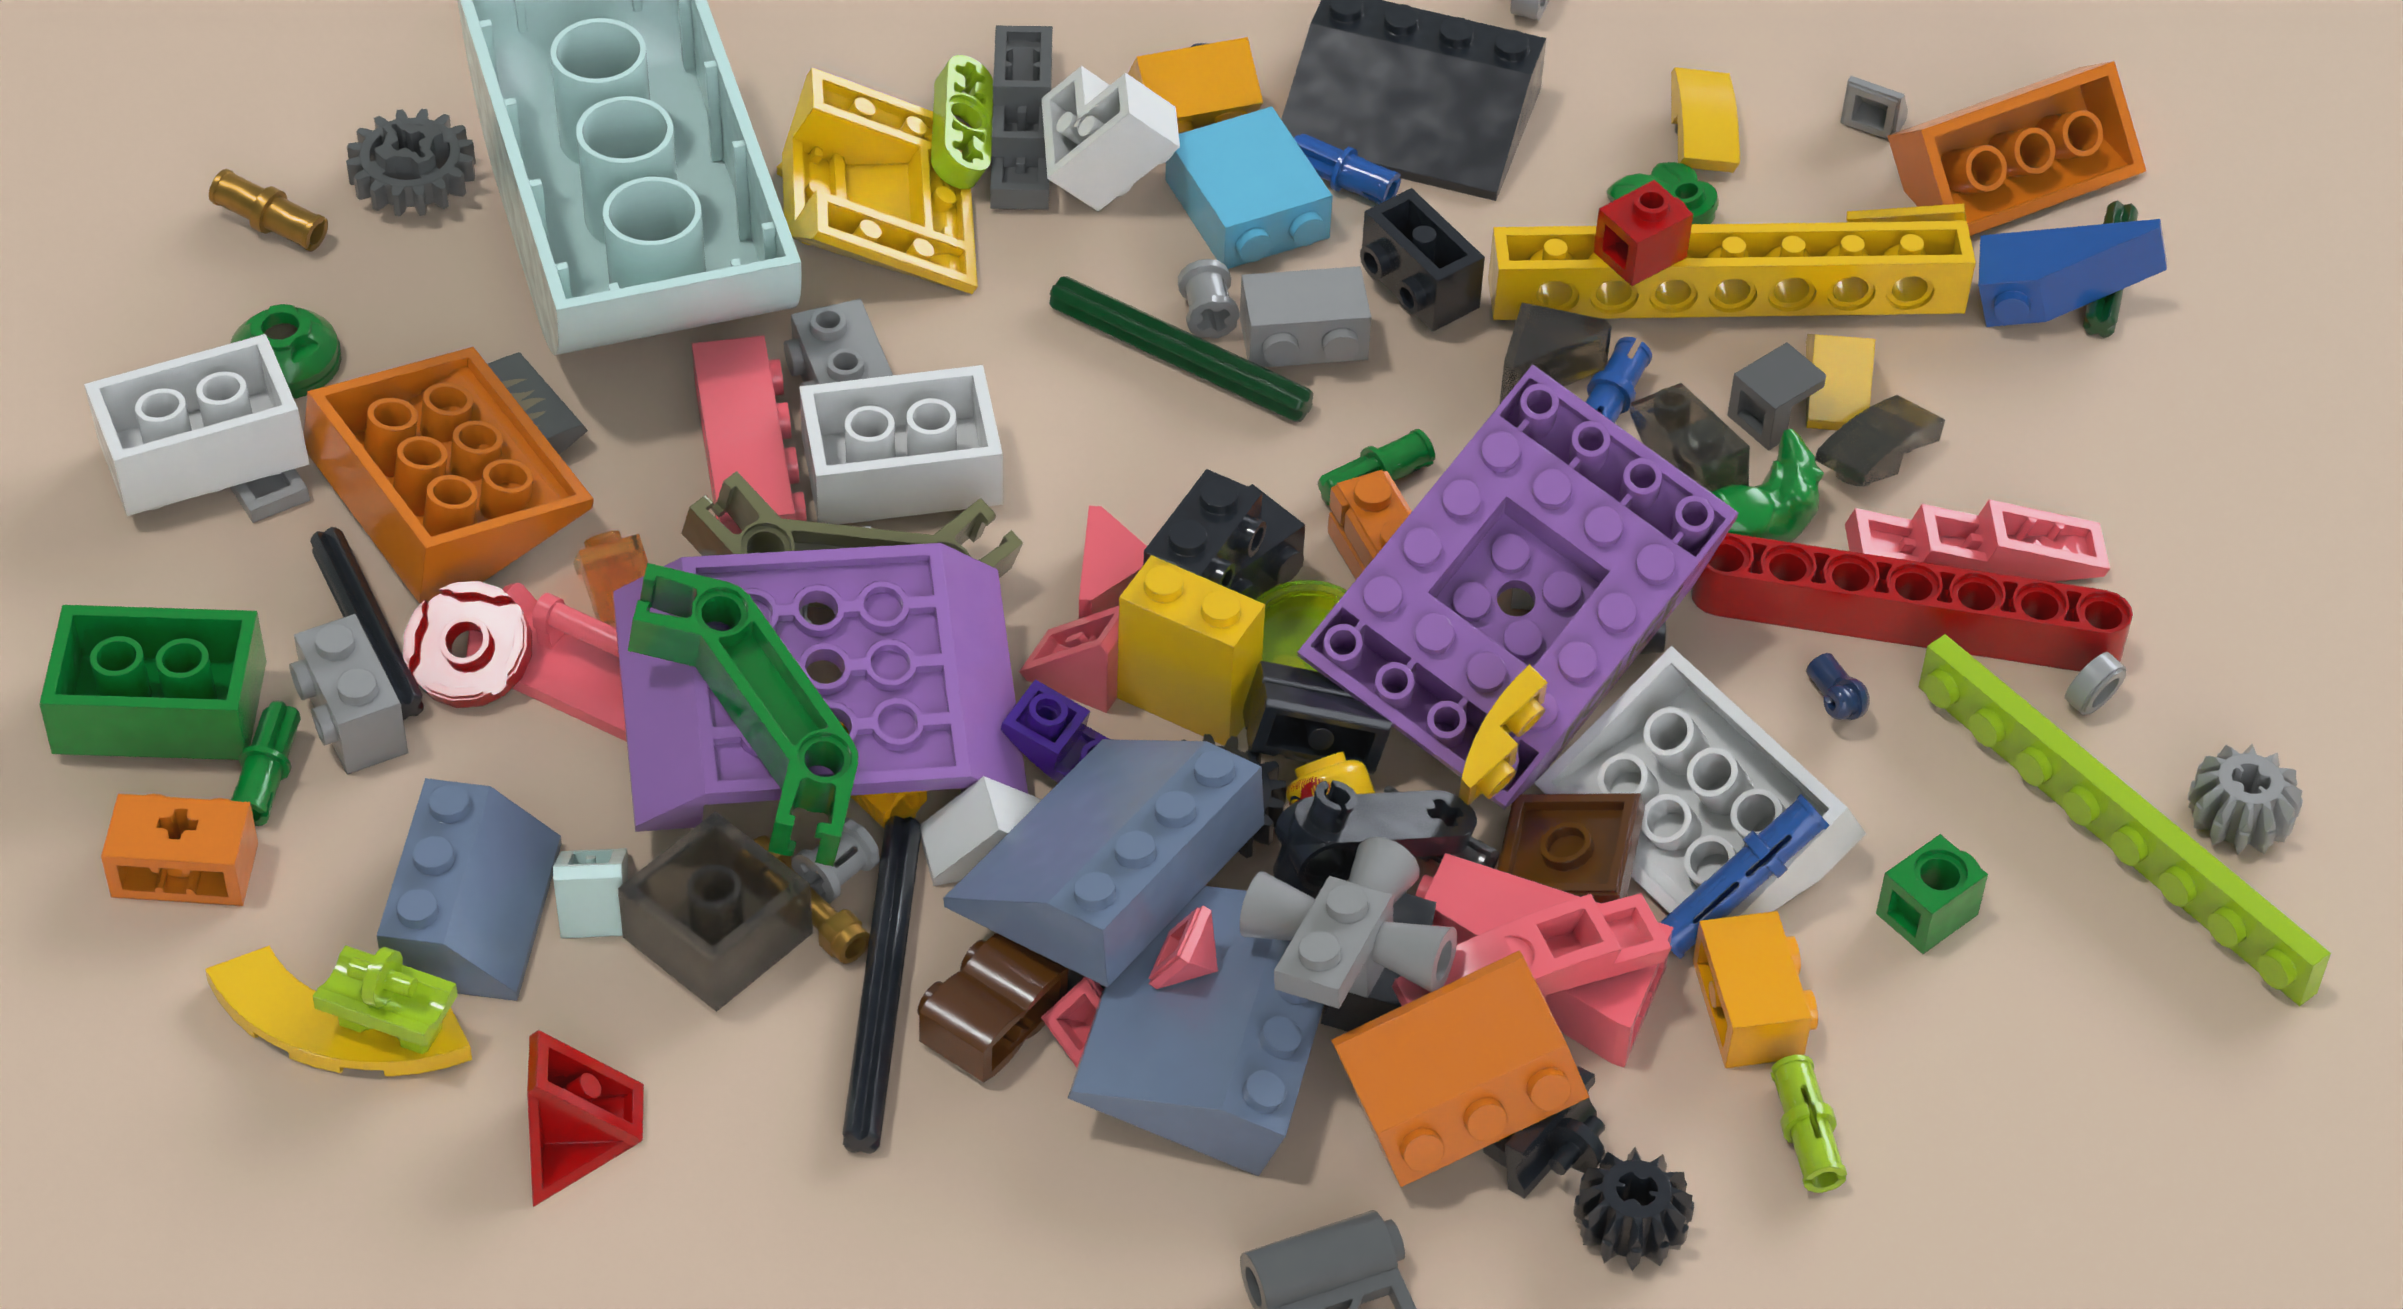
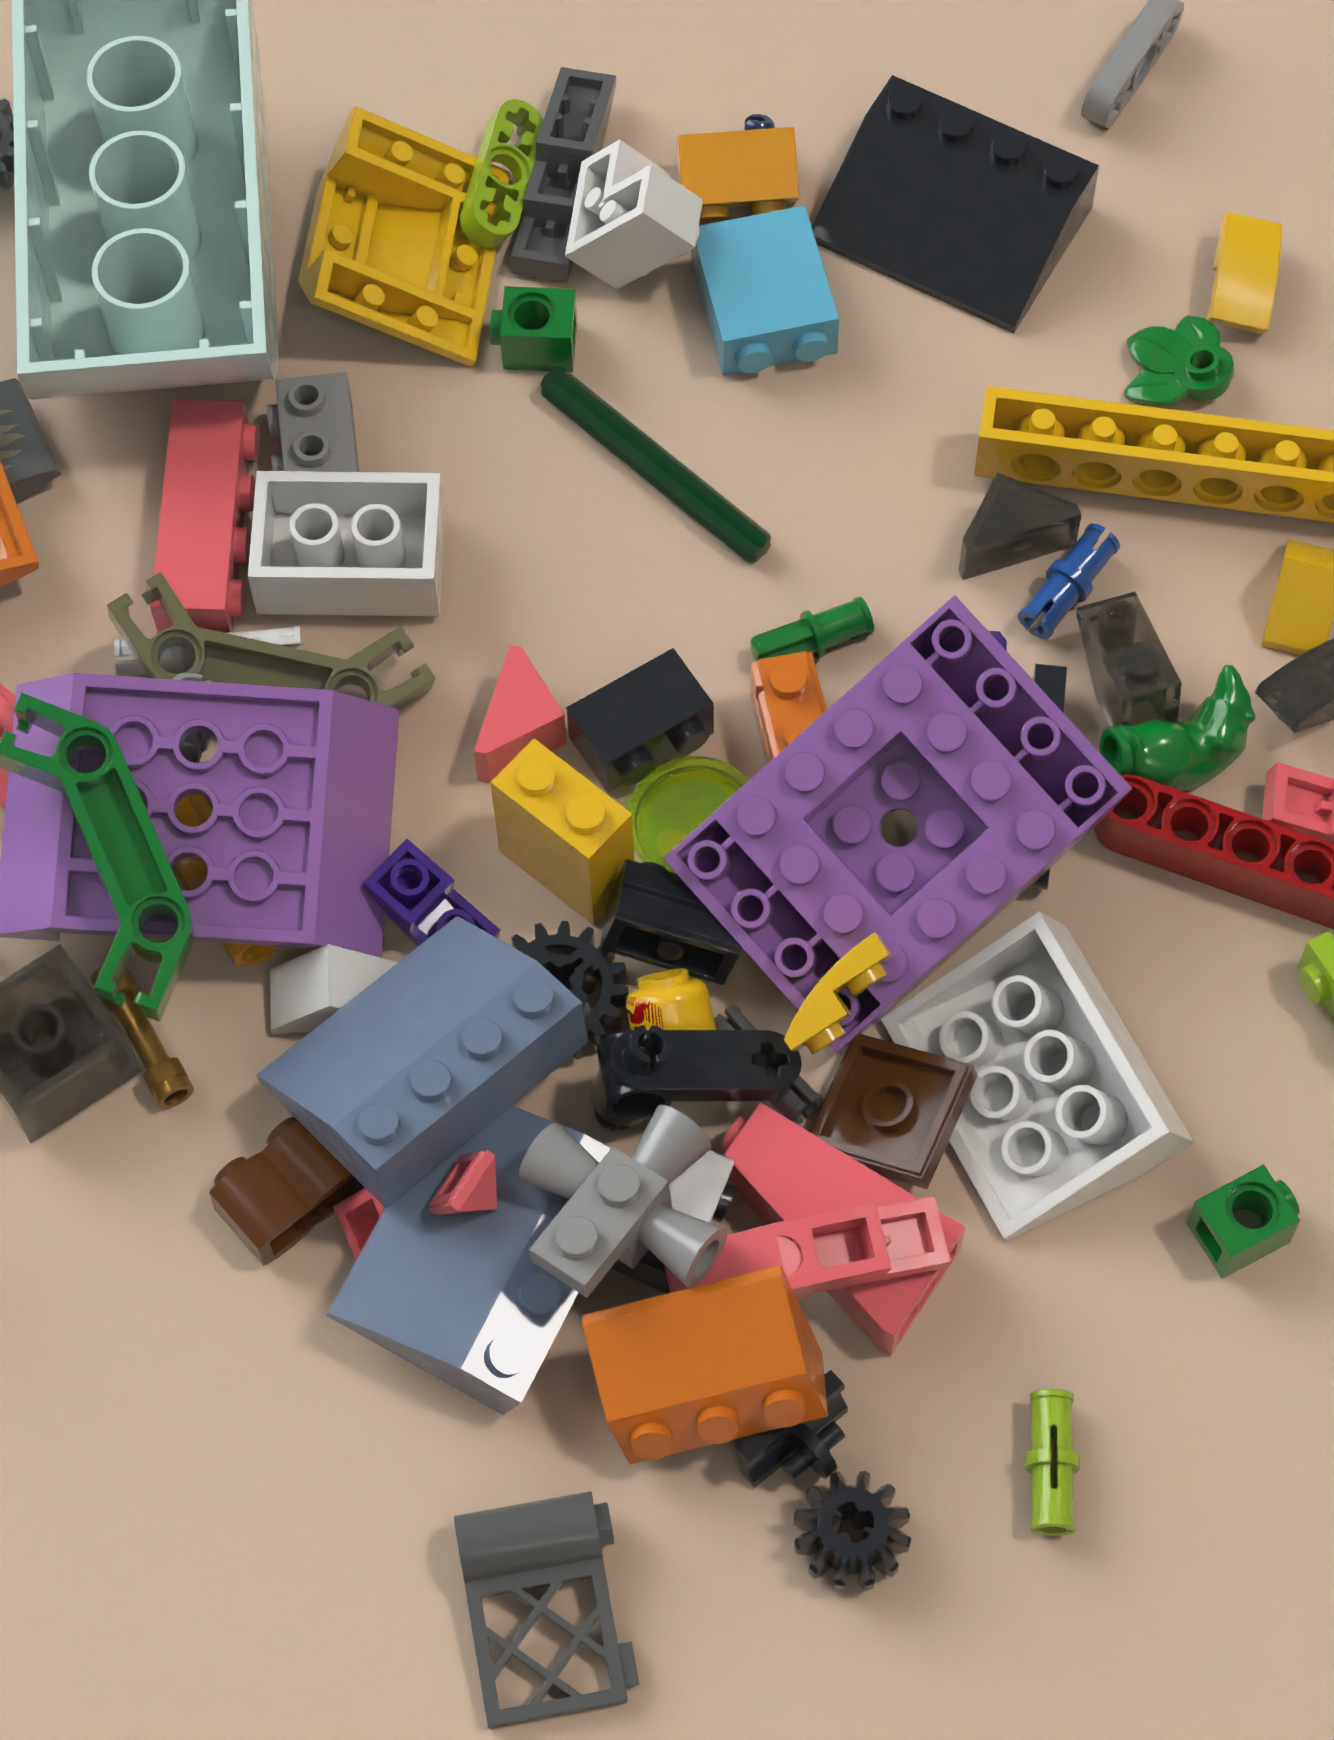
camera: 15 degrees right, 15 degrees up
(608, 565) = (47, 641): clear orange bracket -> none
(846, 864) = (190, 996): light grey bush -> none
(881, 986) = (191, 1142): black axle -> none
(1032, 246) = (542, 308): none -> green brick
(1079, 659) = (462, 810): coral slope -> none
(1210, 306) = (694, 413): light grey bush -> none
(1212, 529) = (603, 717): black brick -> none
(1305, 316) = (780, 453): light grey brick -> none
(1349, 171) = (868, 280): blue axle -> none
(1422, 259) = (911, 404): black brick -> none
(1643, 232) = (1131, 422): red brick -> none
(1745, 872) = (1070, 1168): blue pin -> none
(1753, 988) = (1035, 1300): light orange brick -> none
(1768, 390) = (1230, 606): dark grey panel -> none
(1843, 695) = (1215, 973): dark blue arm -> none

